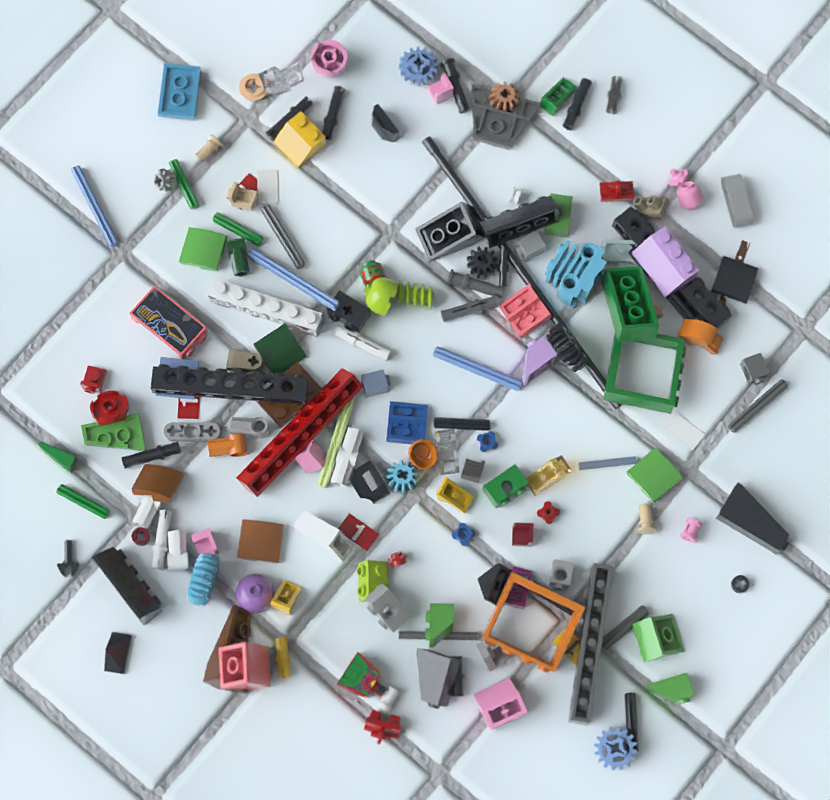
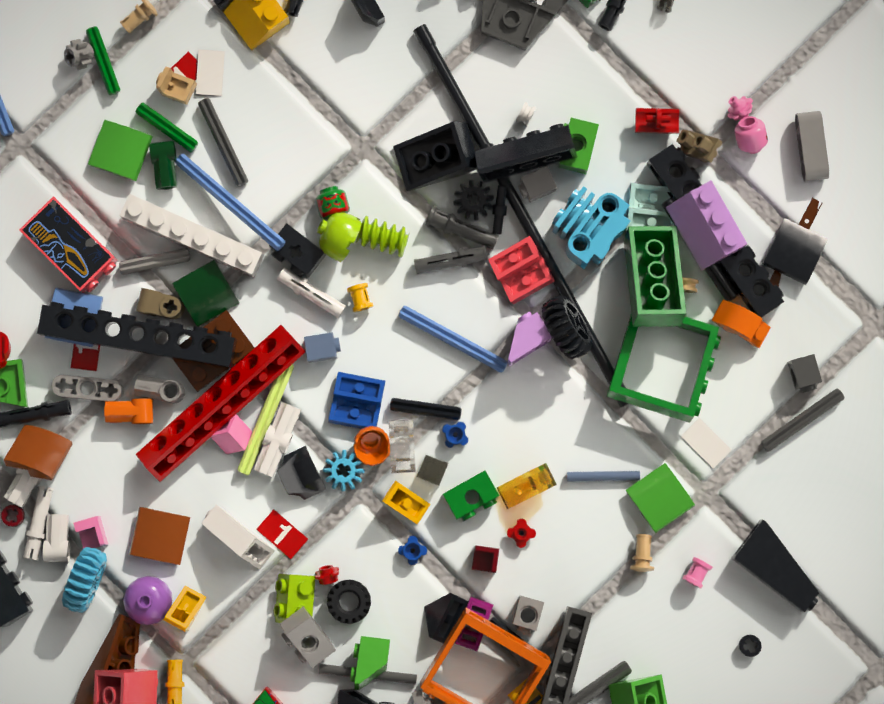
camera: 10 degrees right, 10 degrees up
(237, 330) = (154, 261): none -> light grey axle
(401, 343) = (360, 297): none -> yellow bush
(416, 566) = (359, 590): none -> black tyre

